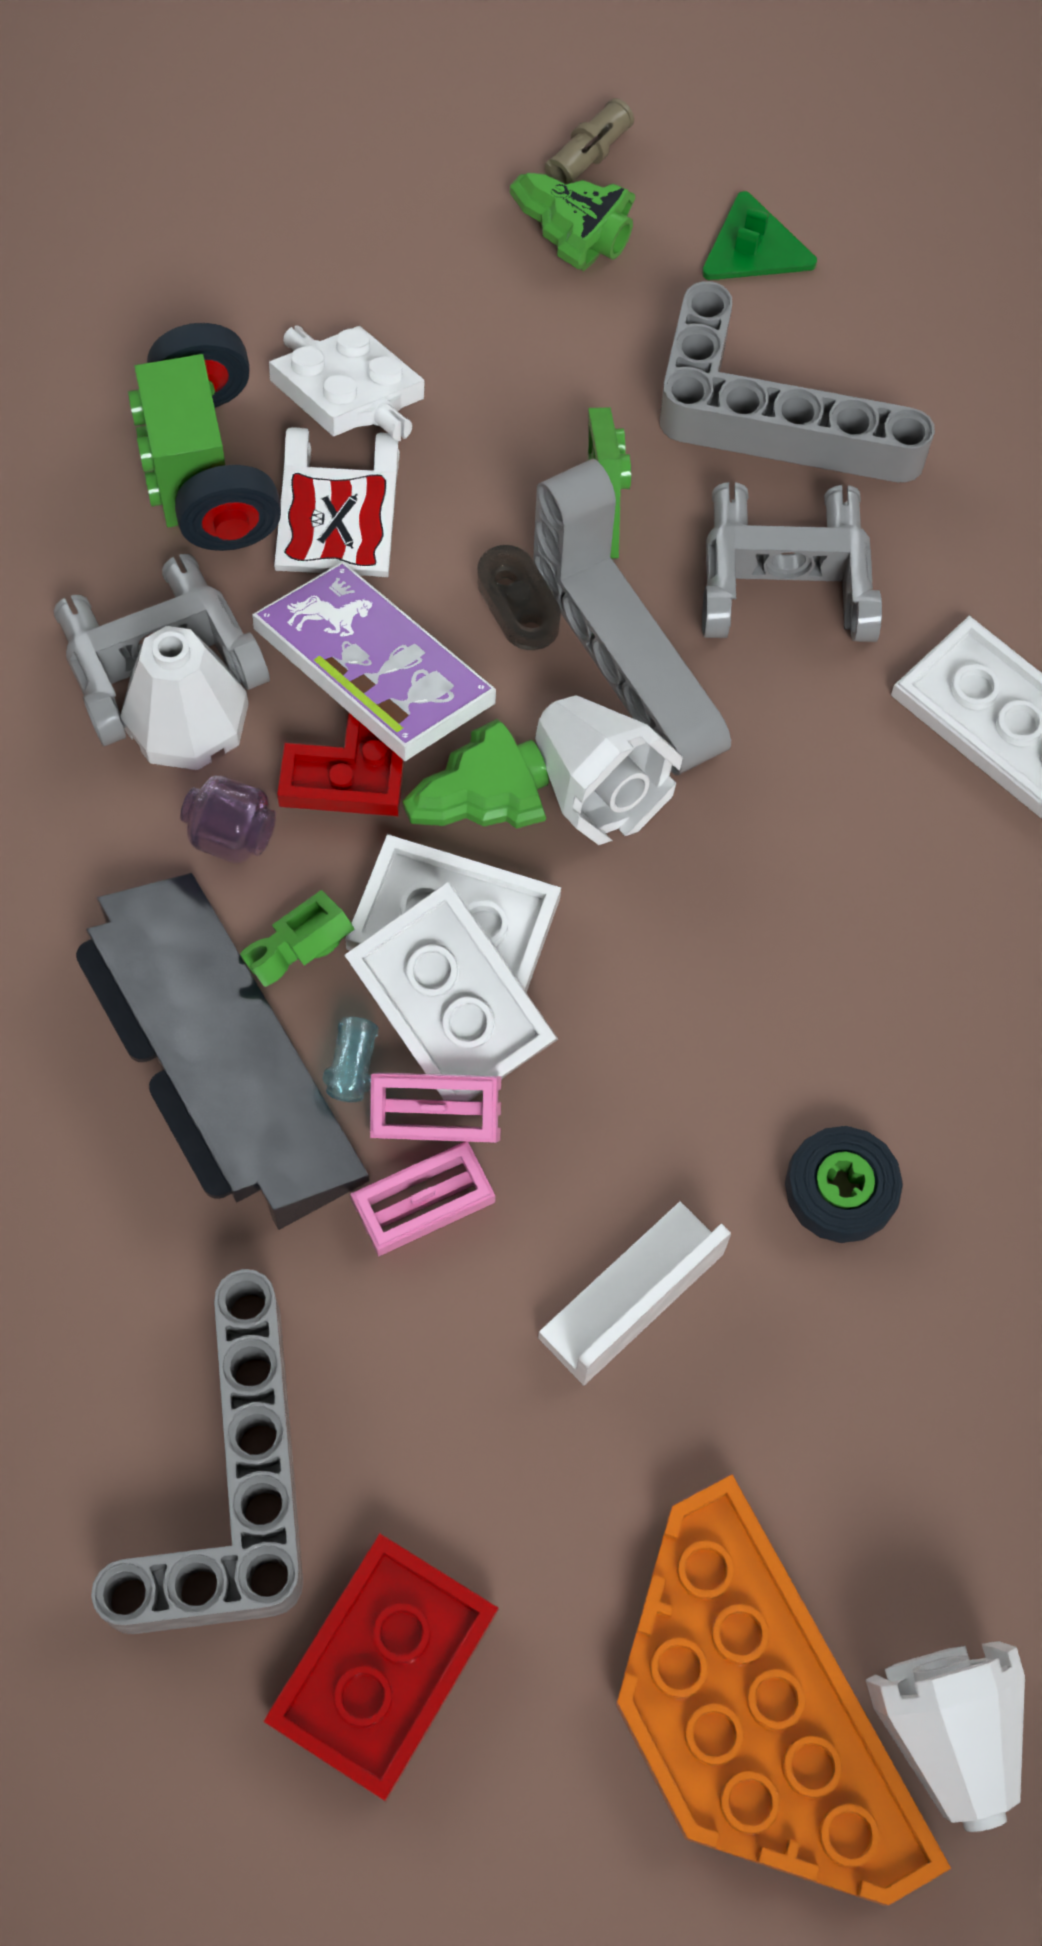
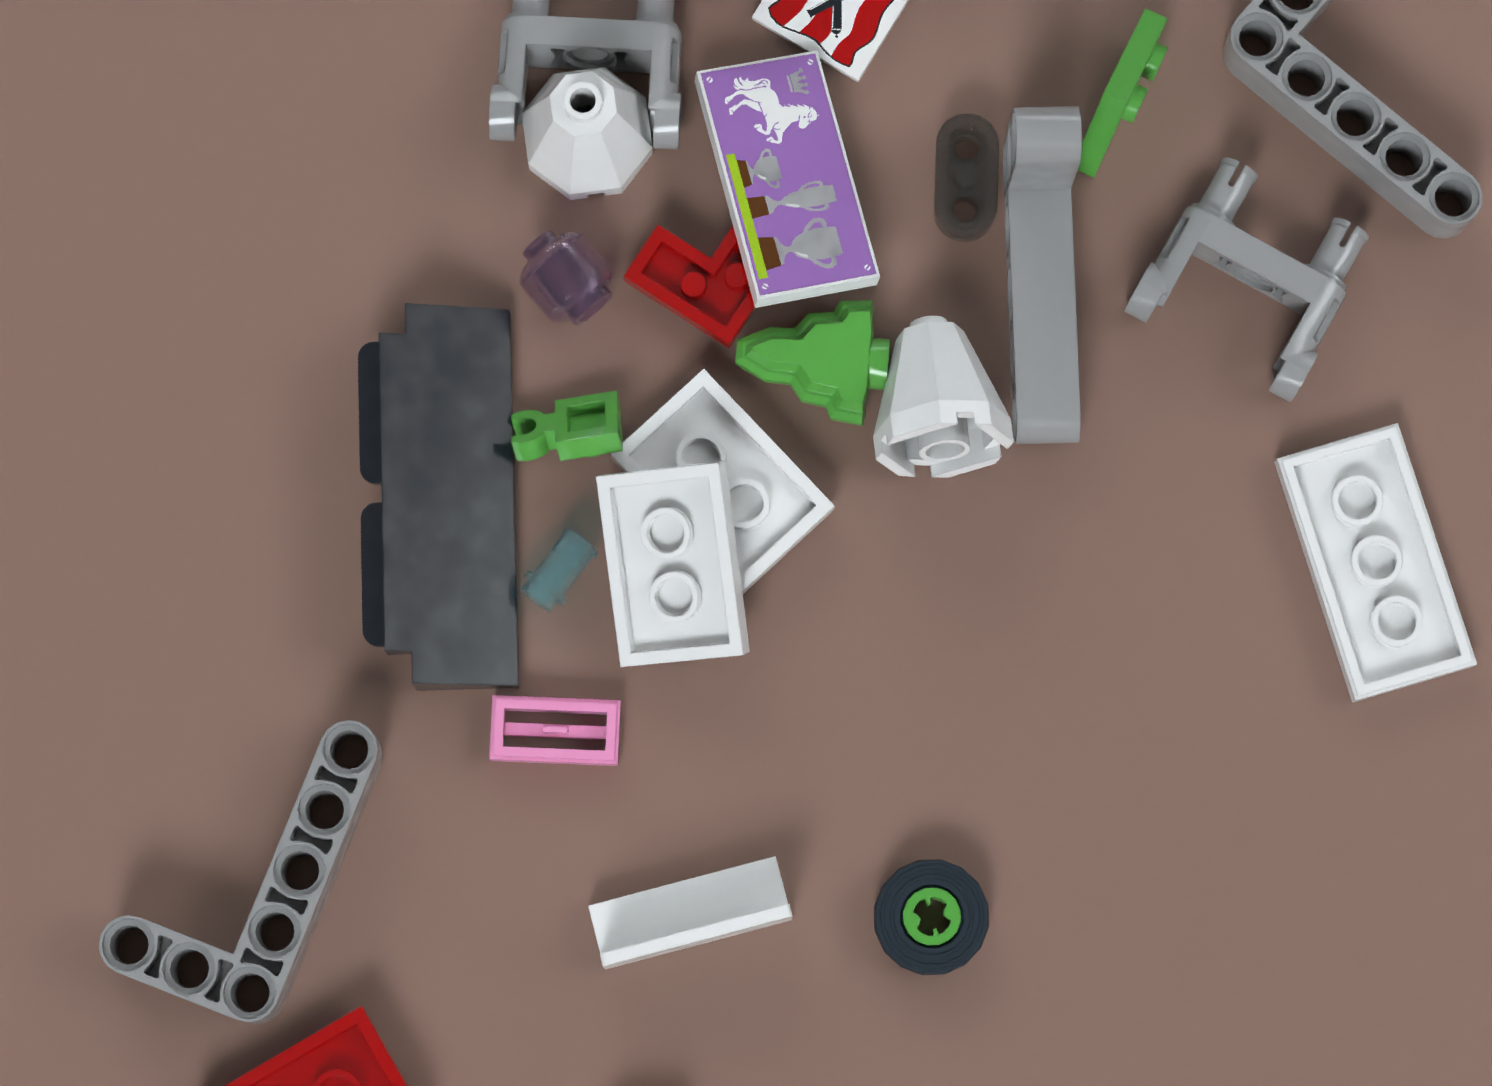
camera: 30 degrees right, 15 degrees up
(489, 1107) = (650, 683): bright pink tile -> none

